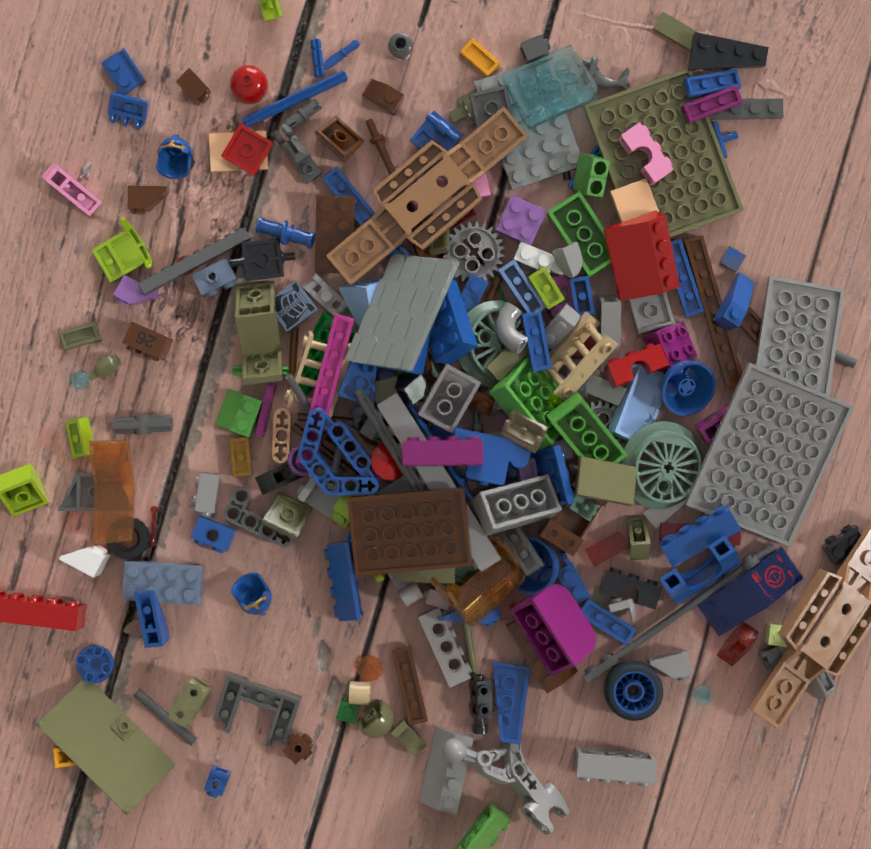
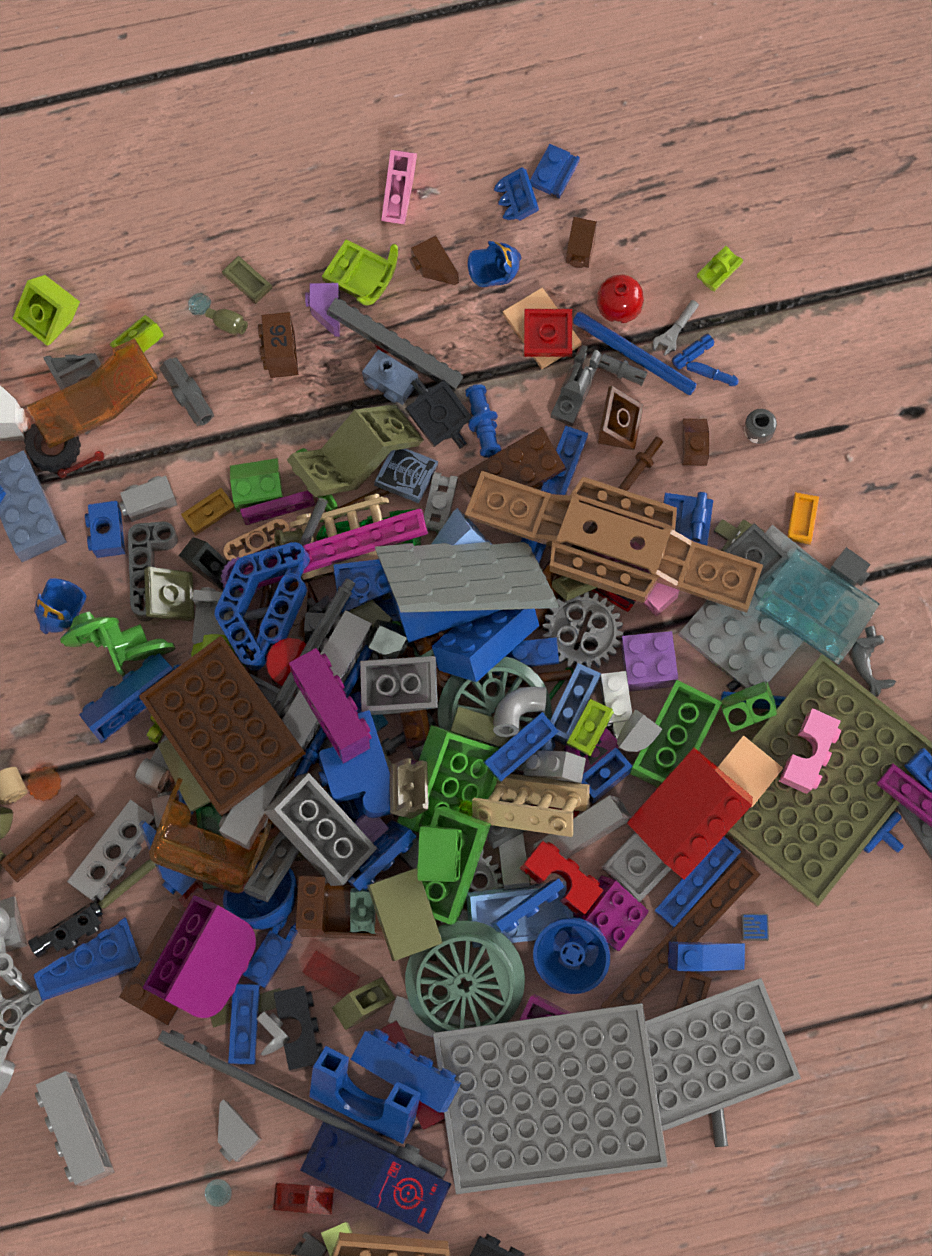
camera: 60 degrees right, 15 degrees down
(295, 414) = (282, 538): none -> olive bush
(297, 68) = (669, 338): none -> light grey piece
(307, 567) = (123, 645): none -> bright green piece
(583, 437) = (439, 854): none -> bright green piece
(641, 703) = (156, 1098): wheel -> none
(642, 398) = (528, 906): none -> blue plate

